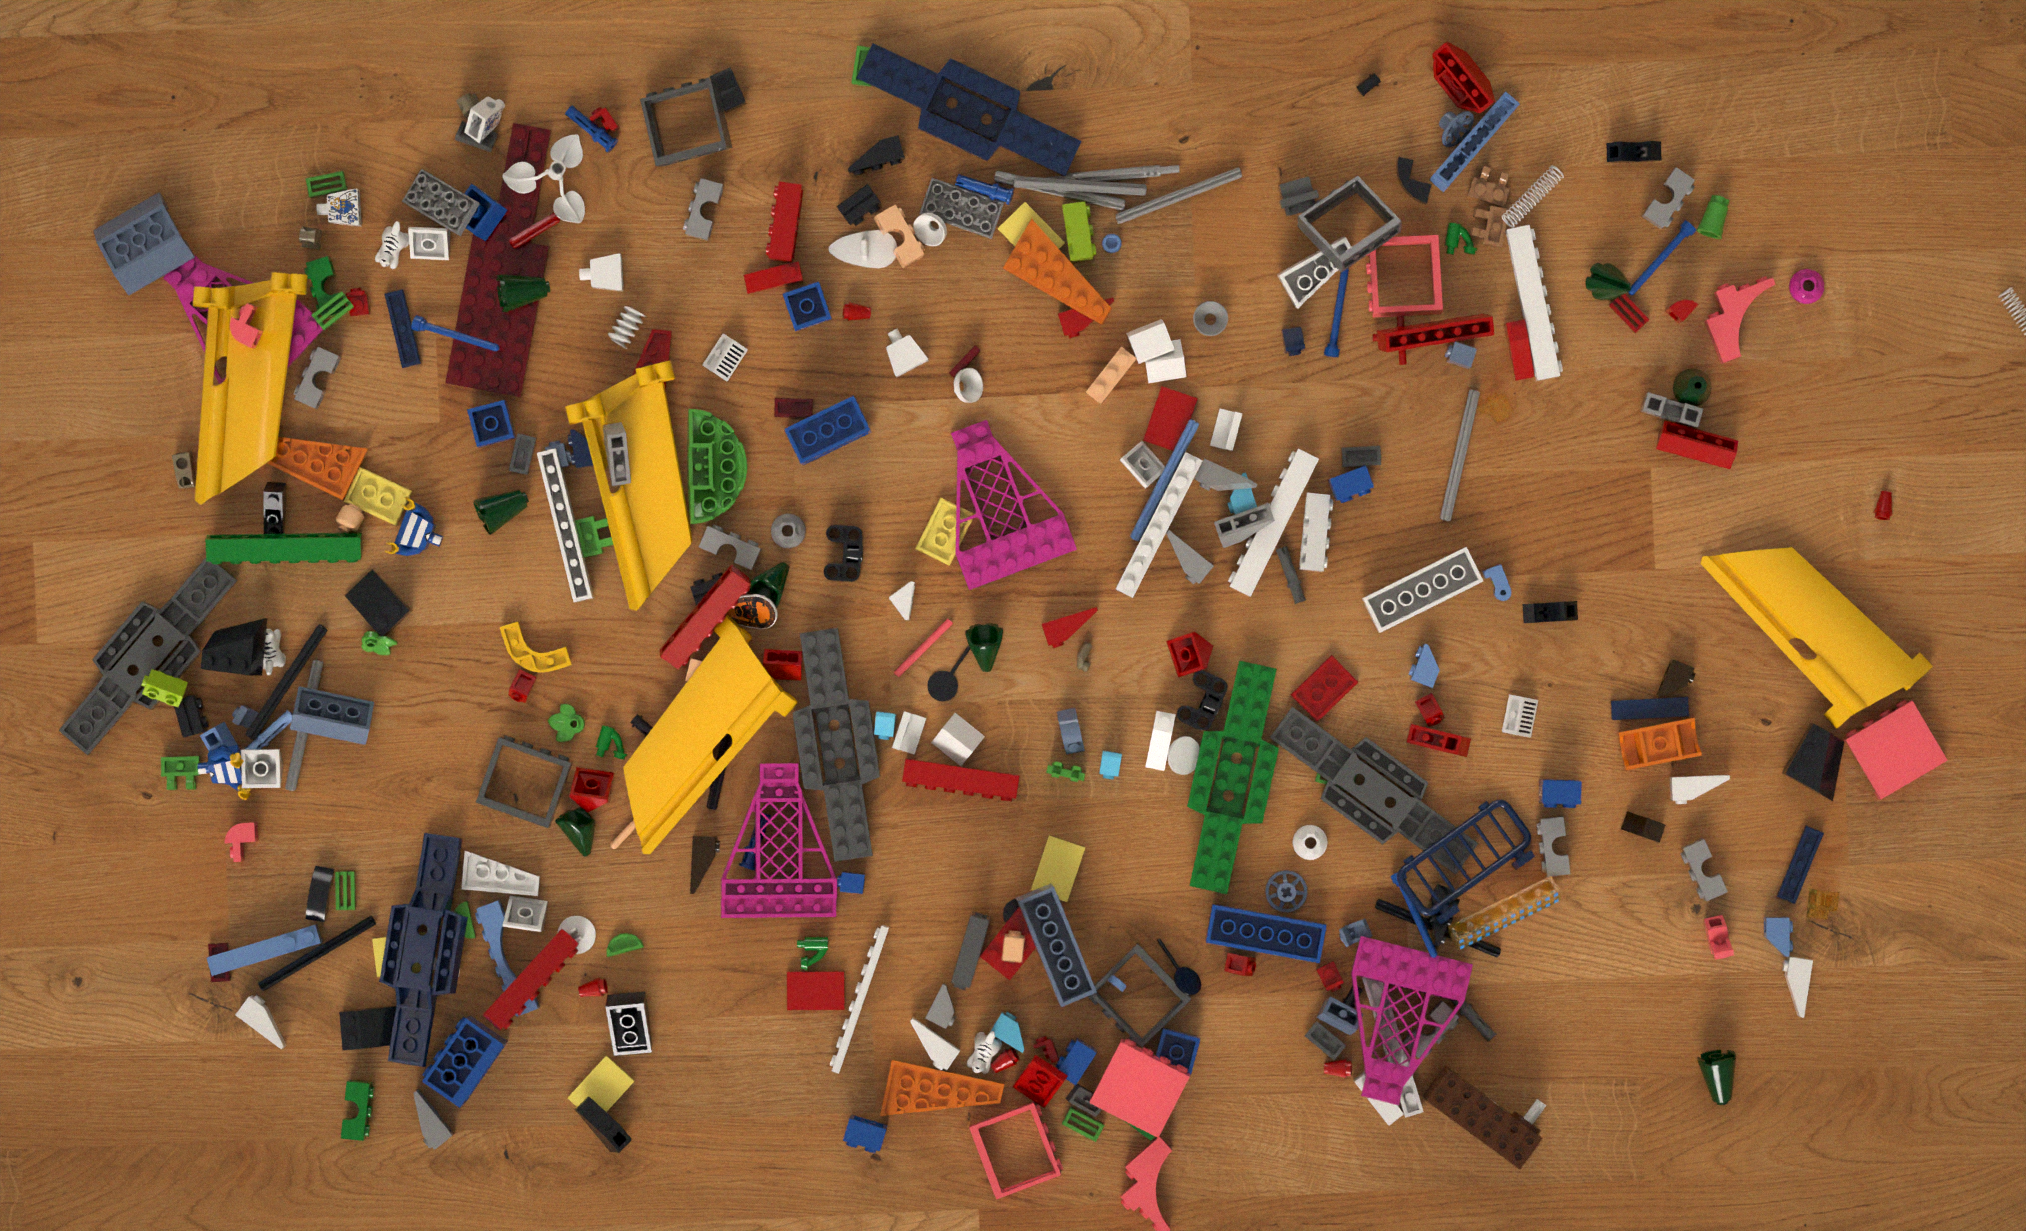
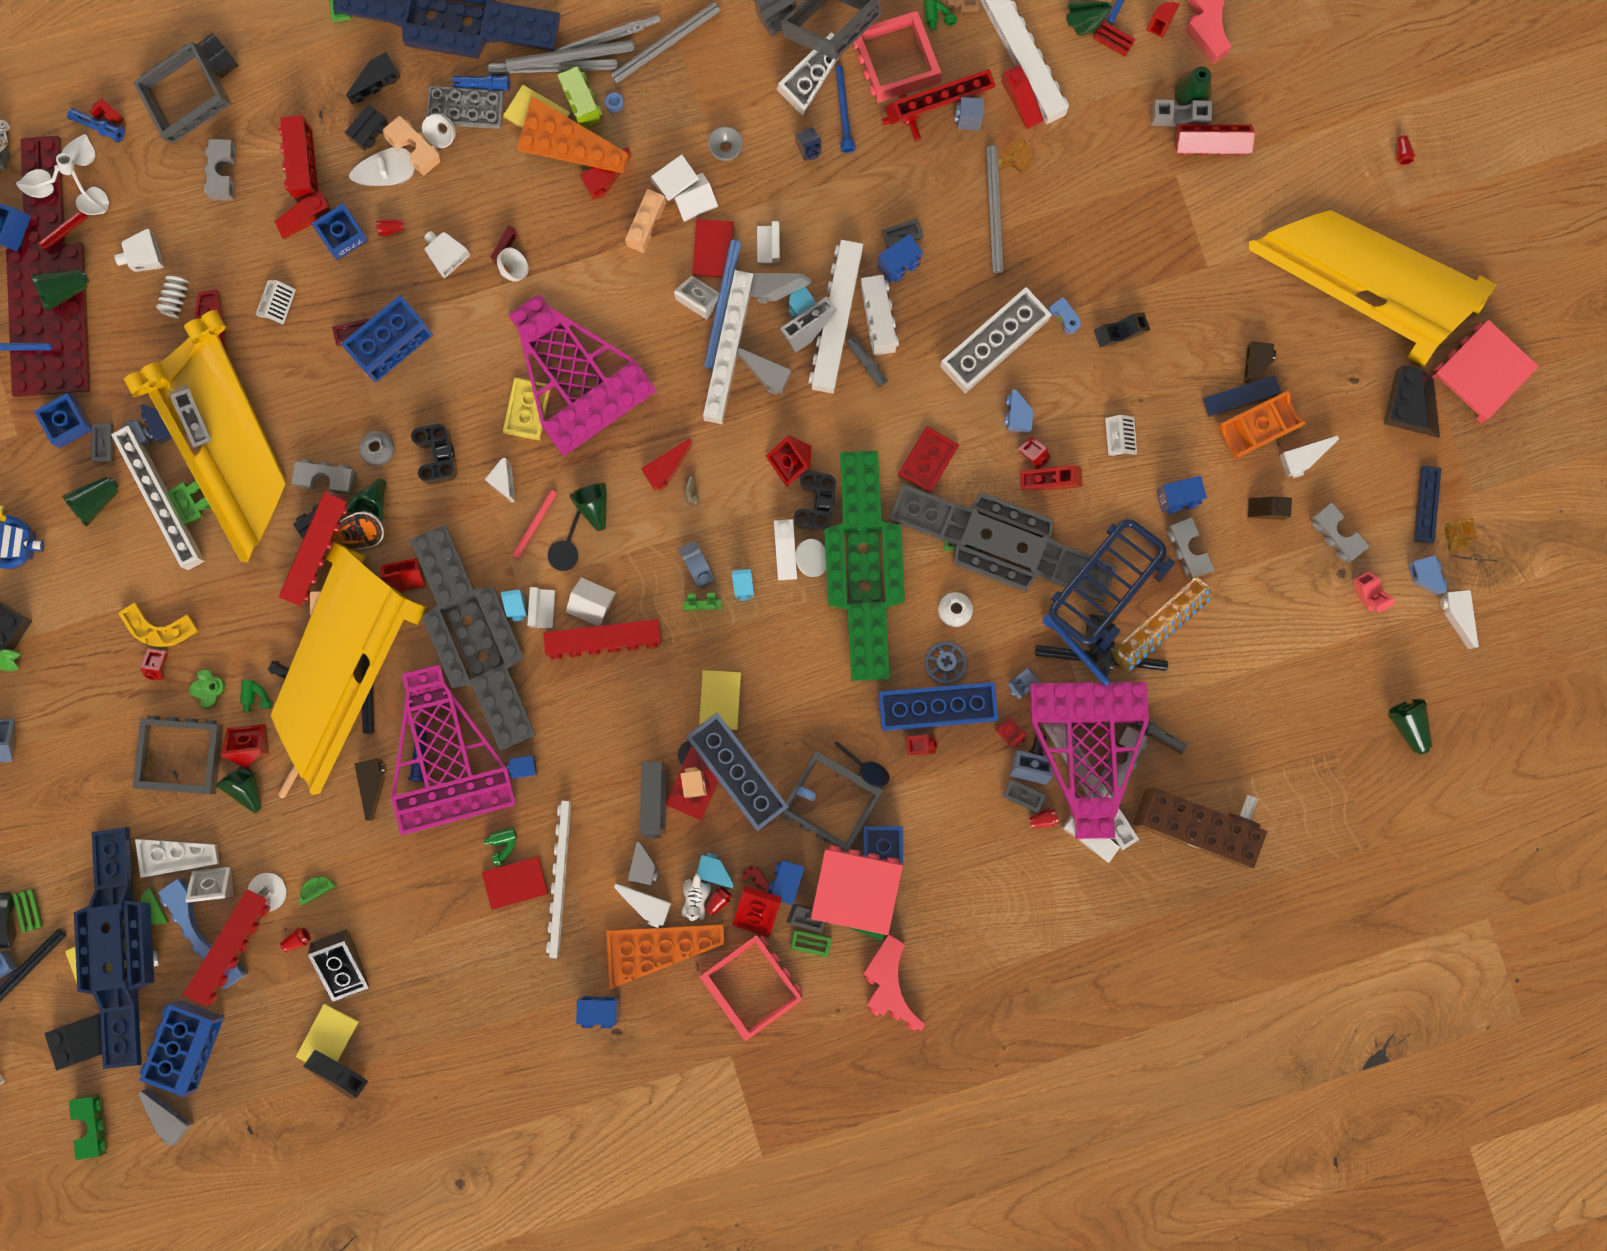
camera: 15 degrees left, 5 degrees down
(713, 466) = (289, 404): bright green brick -> none

